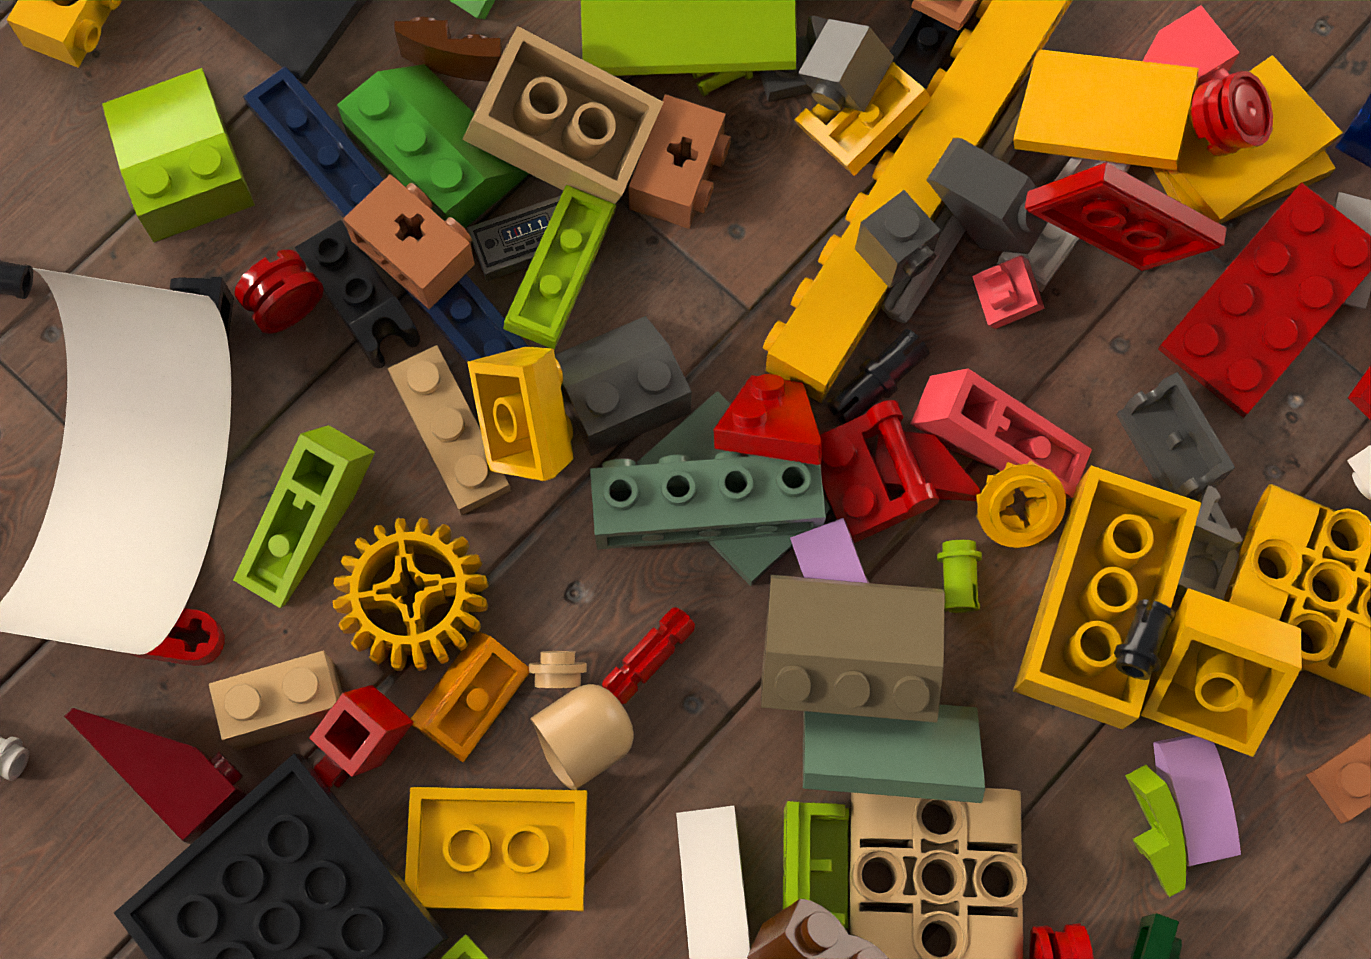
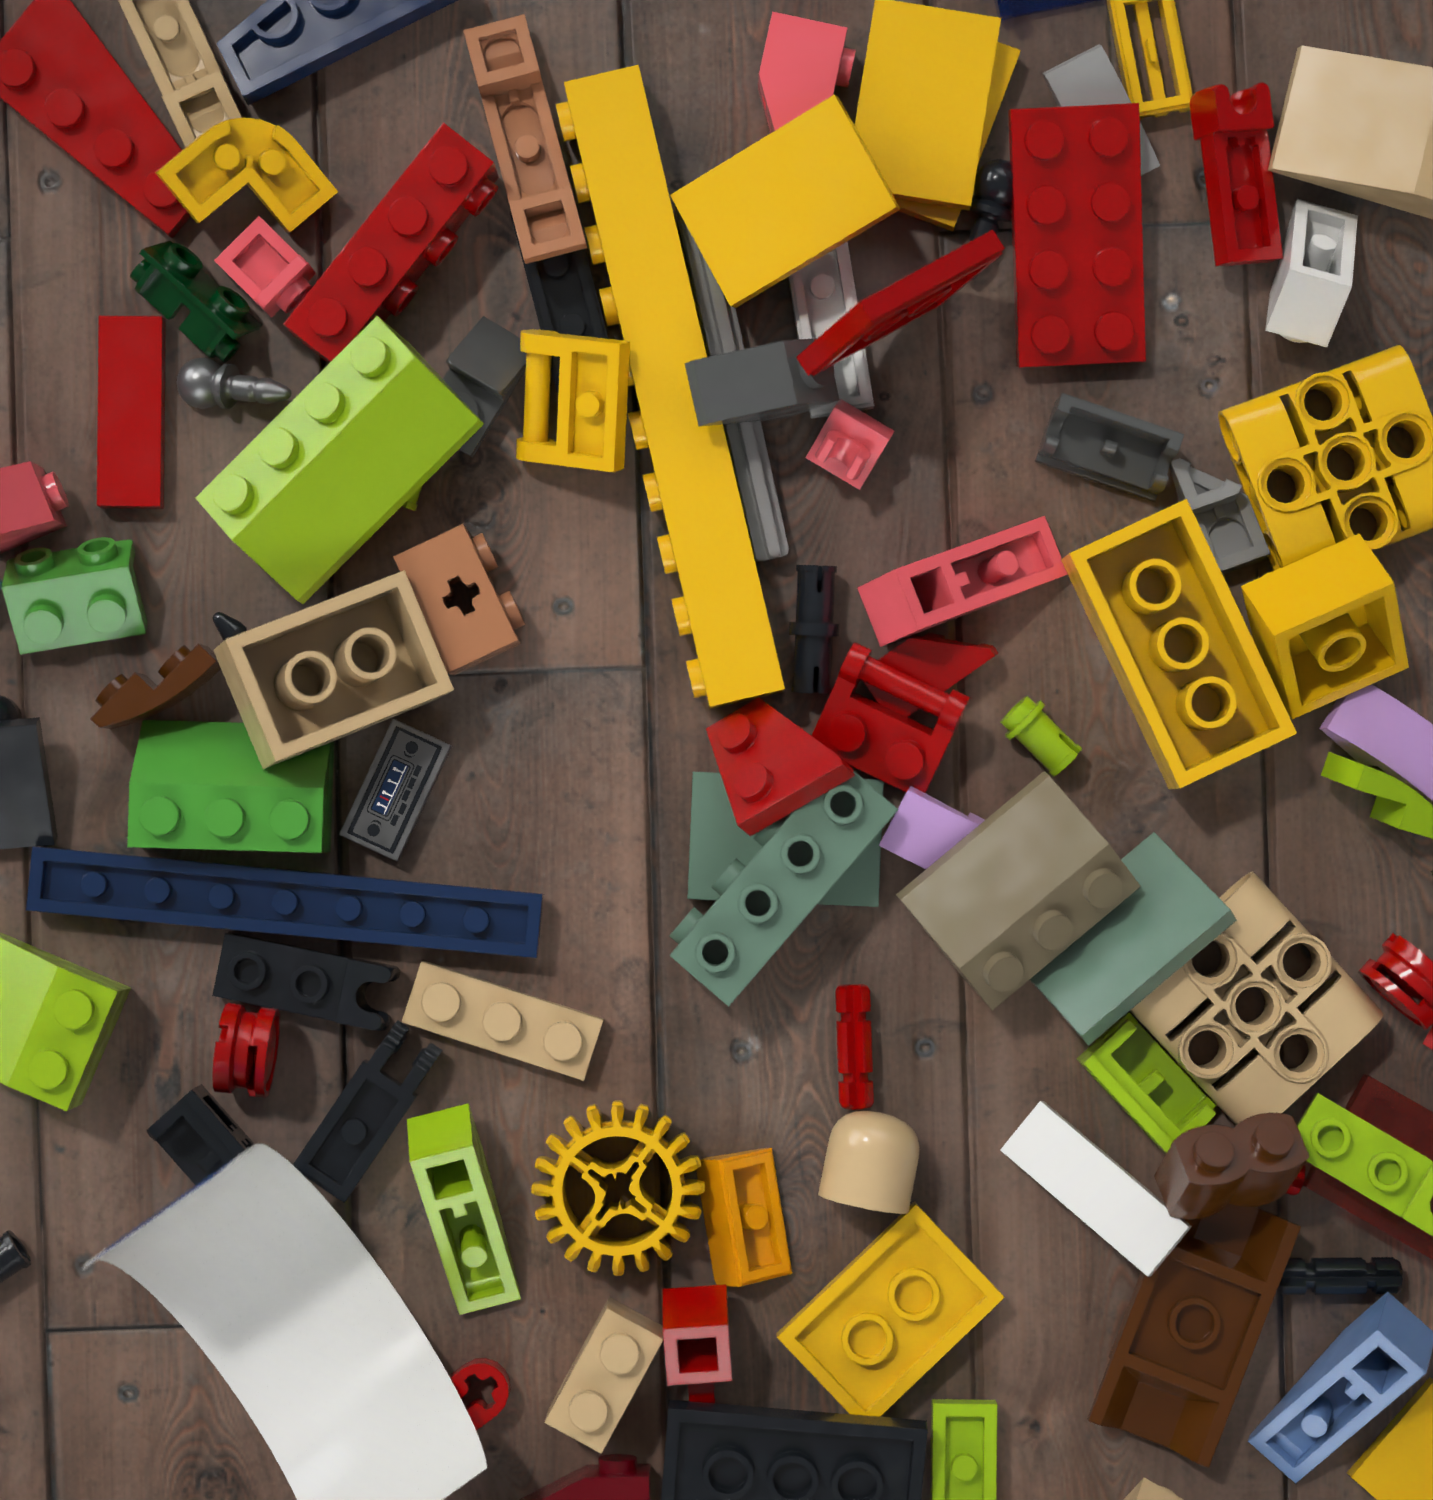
camera: 50 degrees left, 15 degrees up
(307, 401) = (363, 1118): none -> black hinge
(424, 266) = (281, 920): nougat brick -> none
(522, 412) = (566, 960): yellow slope -> none
(557, 670) = (797, 1132): tan plate -> none
(559, 267) = (457, 795): lime tile -> none
(622, 385) = (602, 844): dark grey slope -> none
(845, 65) = (529, 386): dark grey brick -> none
(898, 240) = (732, 510): dark grey brick -> none
(1041, 514) = (1029, 655): yellow gear -> none
(1144, 640) = (1248, 669): black pin -> none
(1232, 113) = (901, 109): red wheel -> none
(1239, 233) = (993, 196): none -> black bar

